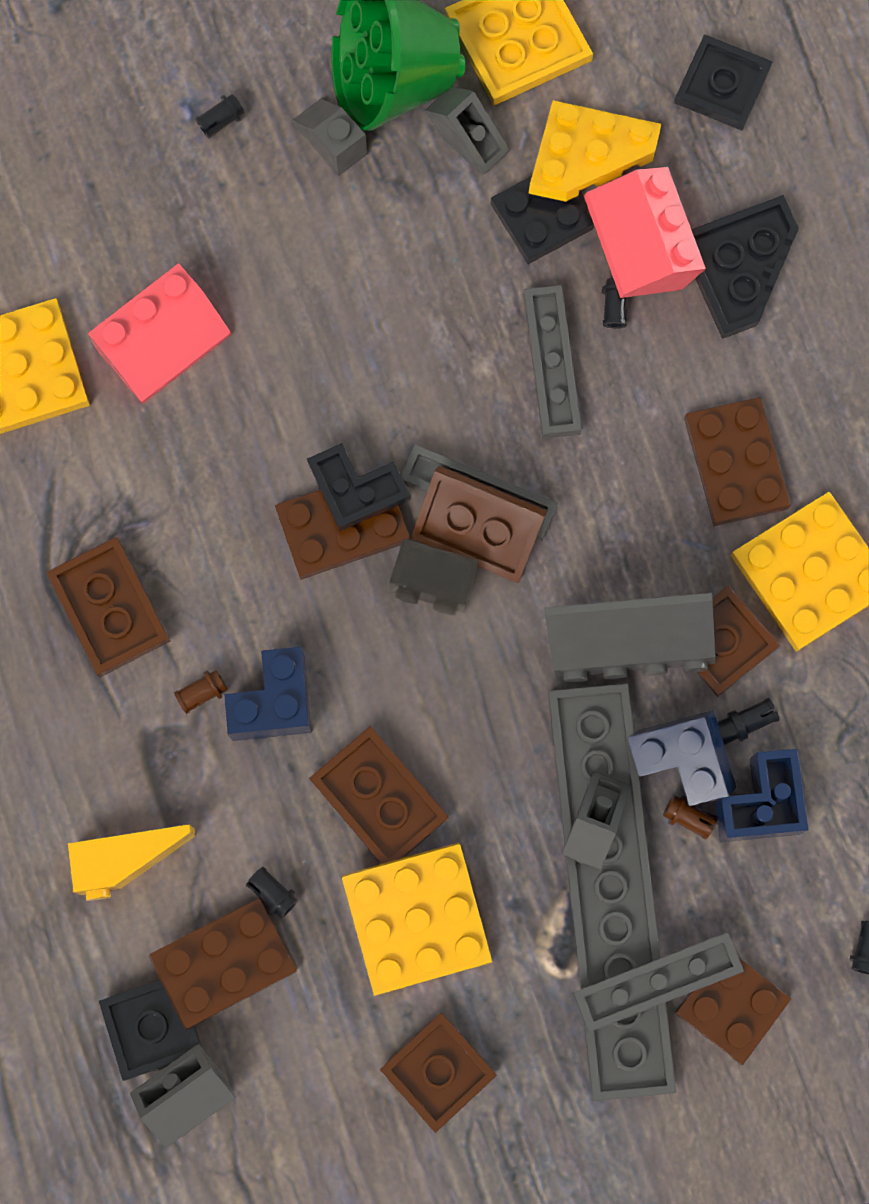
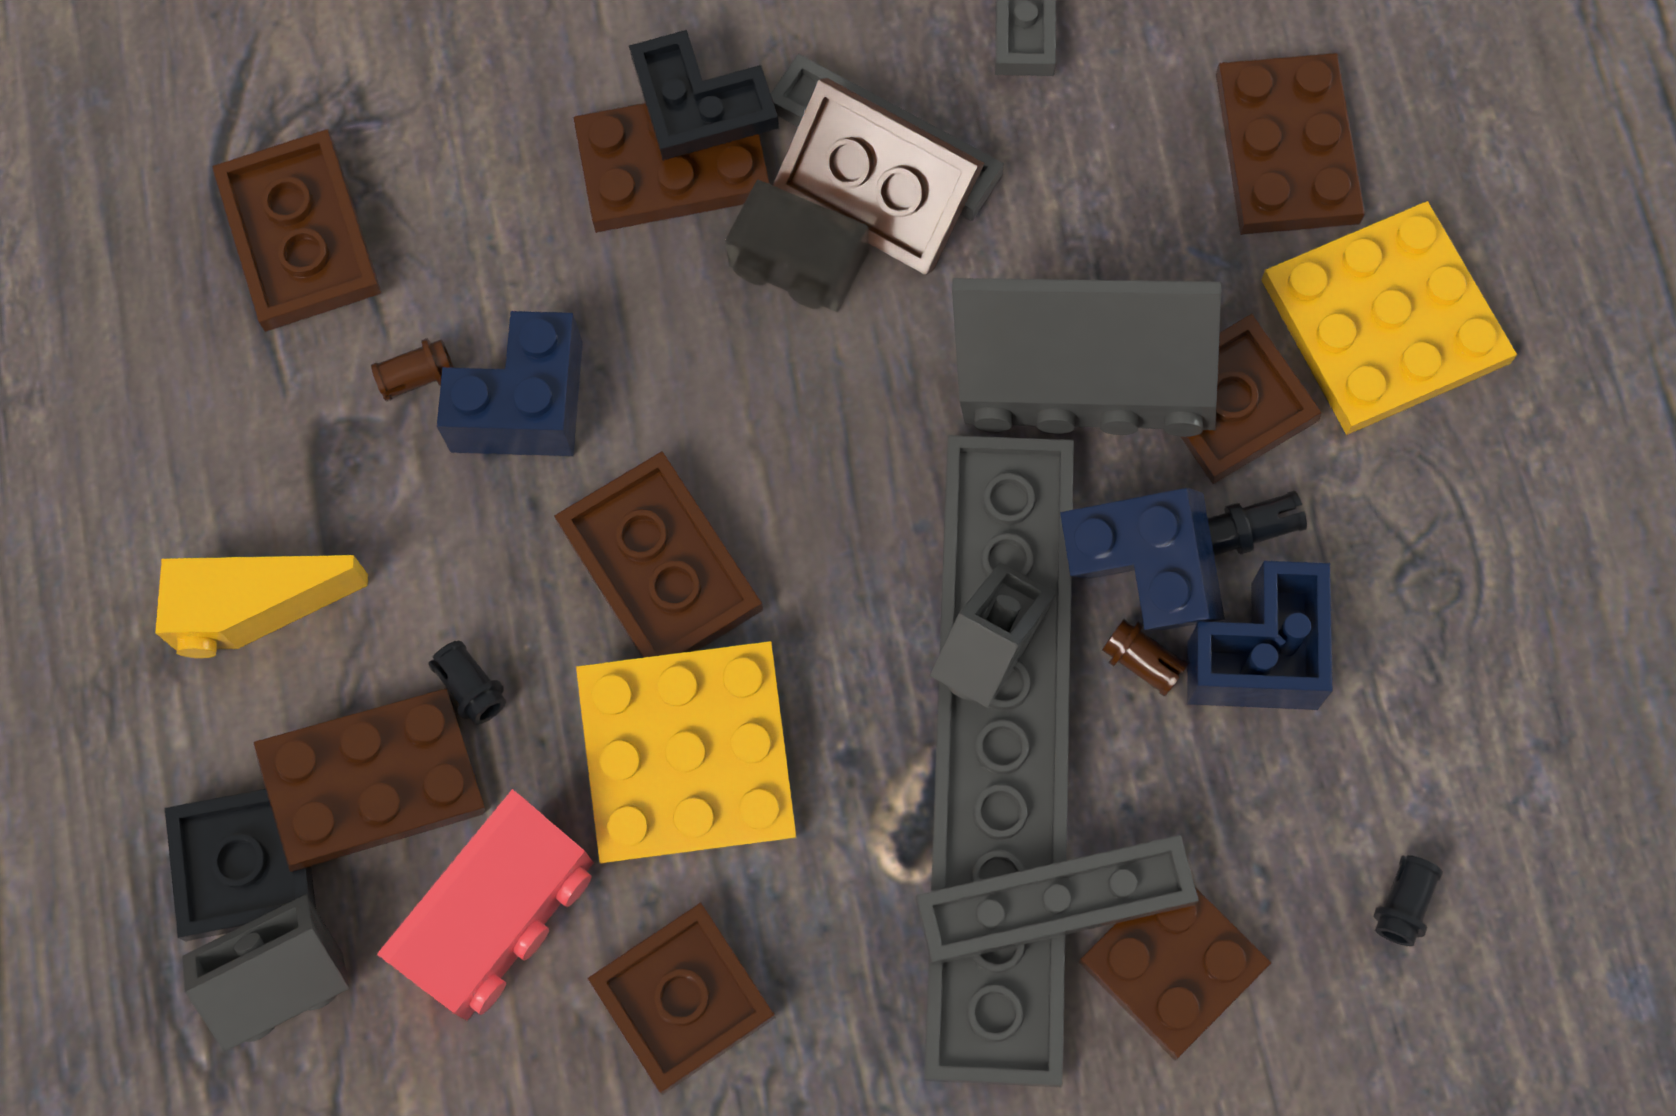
camera: 10 degrees right, 5 degrees down
(314, 1037) = (489, 908): none -> coral slope

